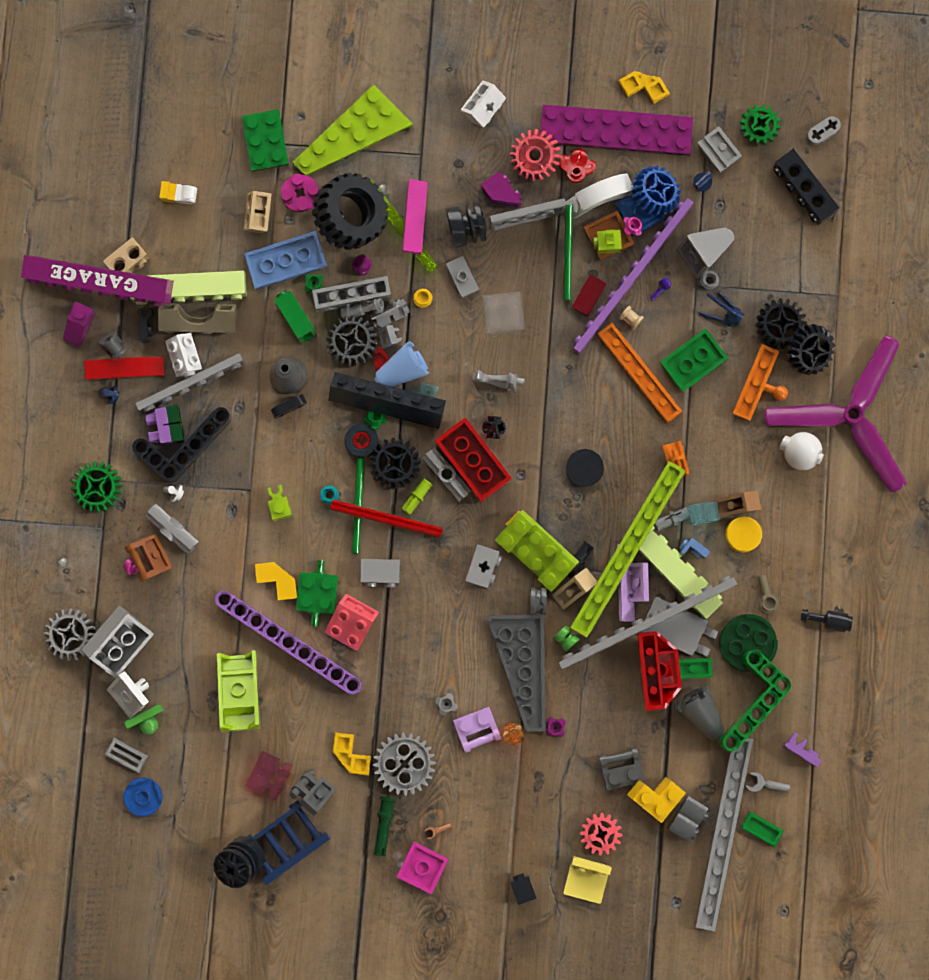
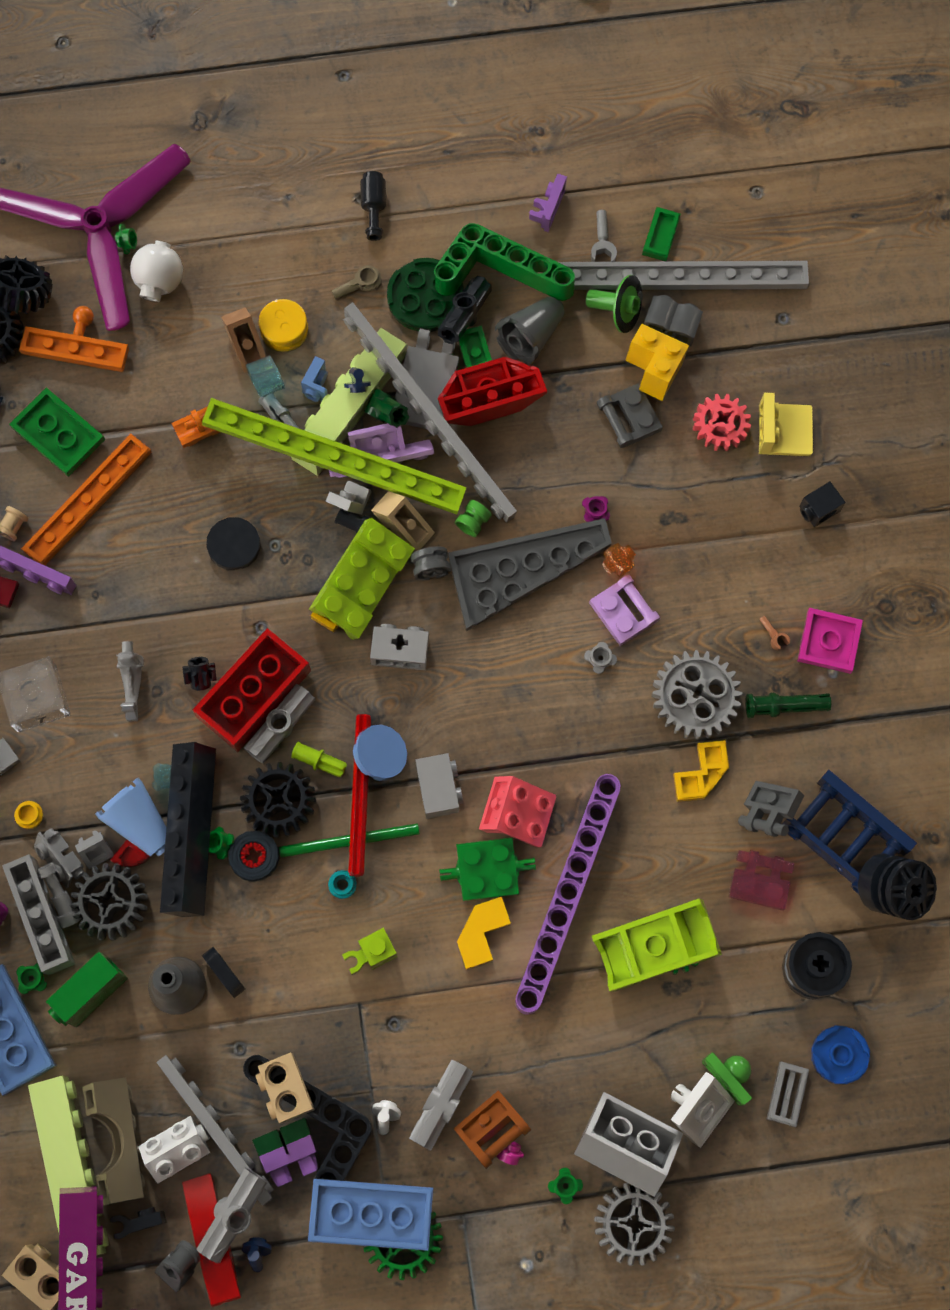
camera: 105 degrees left, 10 degrees down
(104, 602) = (574, 1185): none -> green plate
(113, 469) = (370, 1214): none -> medium blue tile
(132, 383) = (238, 1204): none -> light grey piece
(190, 797) = (832, 959): none -> black wheel
(202, 435) = (291, 1085): none -> tan brick
(411, 538) = (380, 752): none -> medium blue tile
(597, 555) = (351, 499): none -> light grey bracket
(660, 593) = (387, 409): none -> dark green piece
(680, 576) = (357, 384): none -> dark blue plate
(706, 784) = (624, 303): none -> bright green piece
(733, 674) = (464, 310): none -> black piece
(835, 434) = (126, 238): none -> green plate

